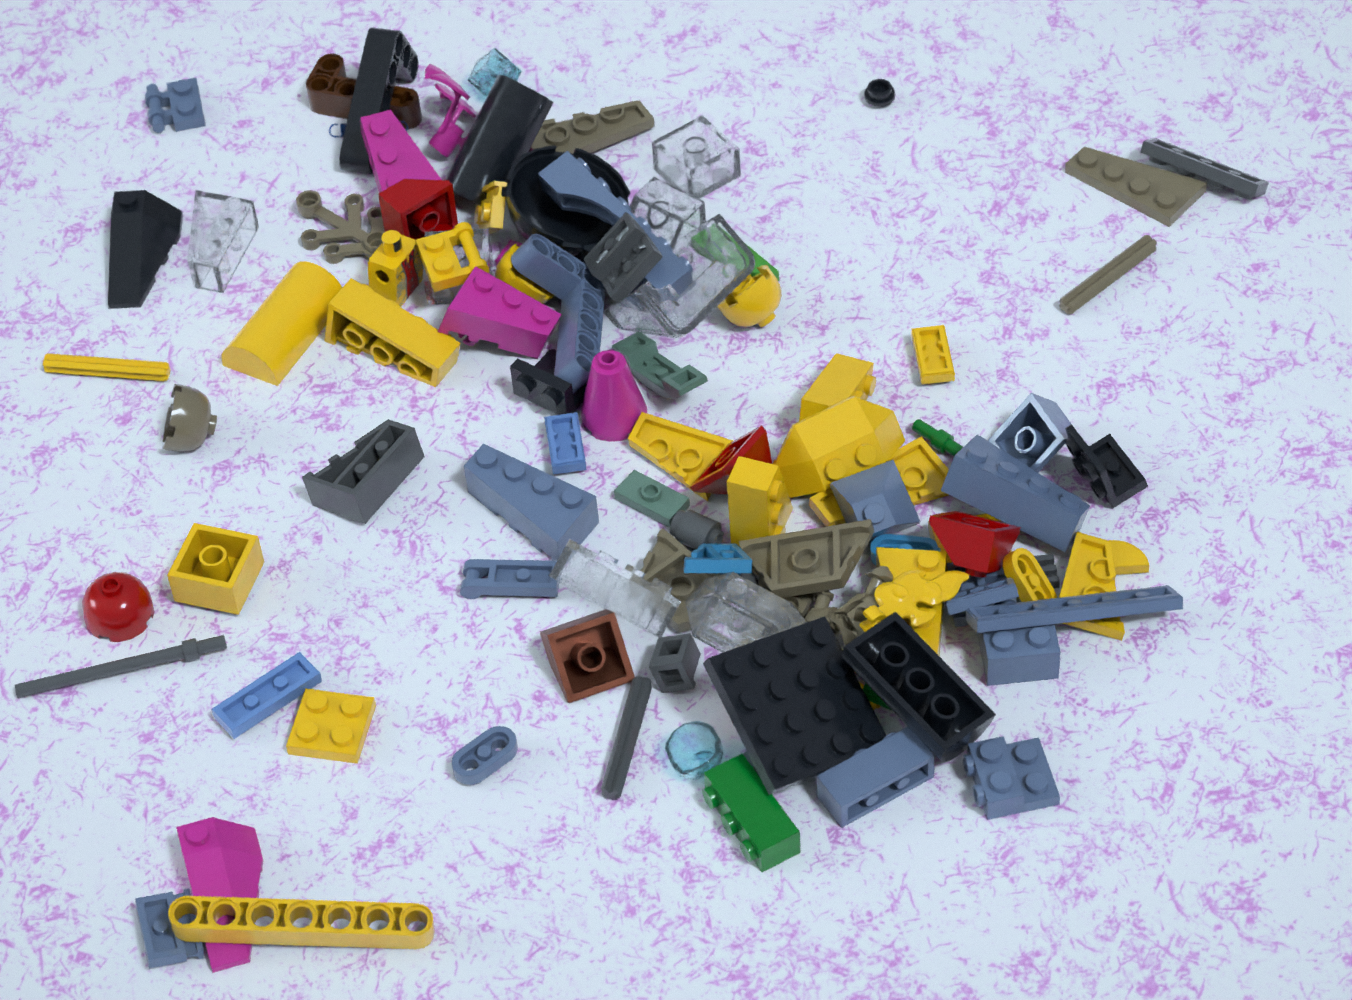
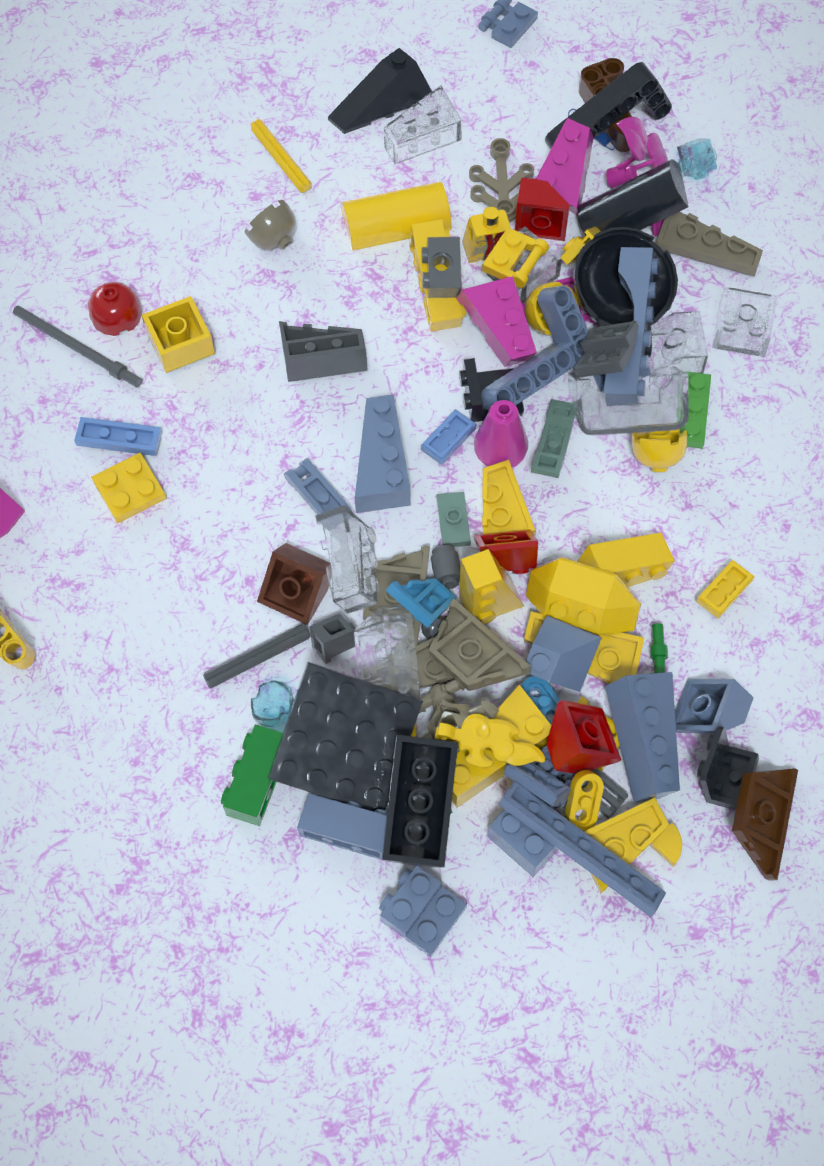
camera: 45 degrees right, 15 degrees up
(418, 314) = (445, 252): none -> dark grey brick
(482, 755) = (175, 586): sand blue plate -> none
(1171, 472) = (764, 817): none -> reddish brown wing

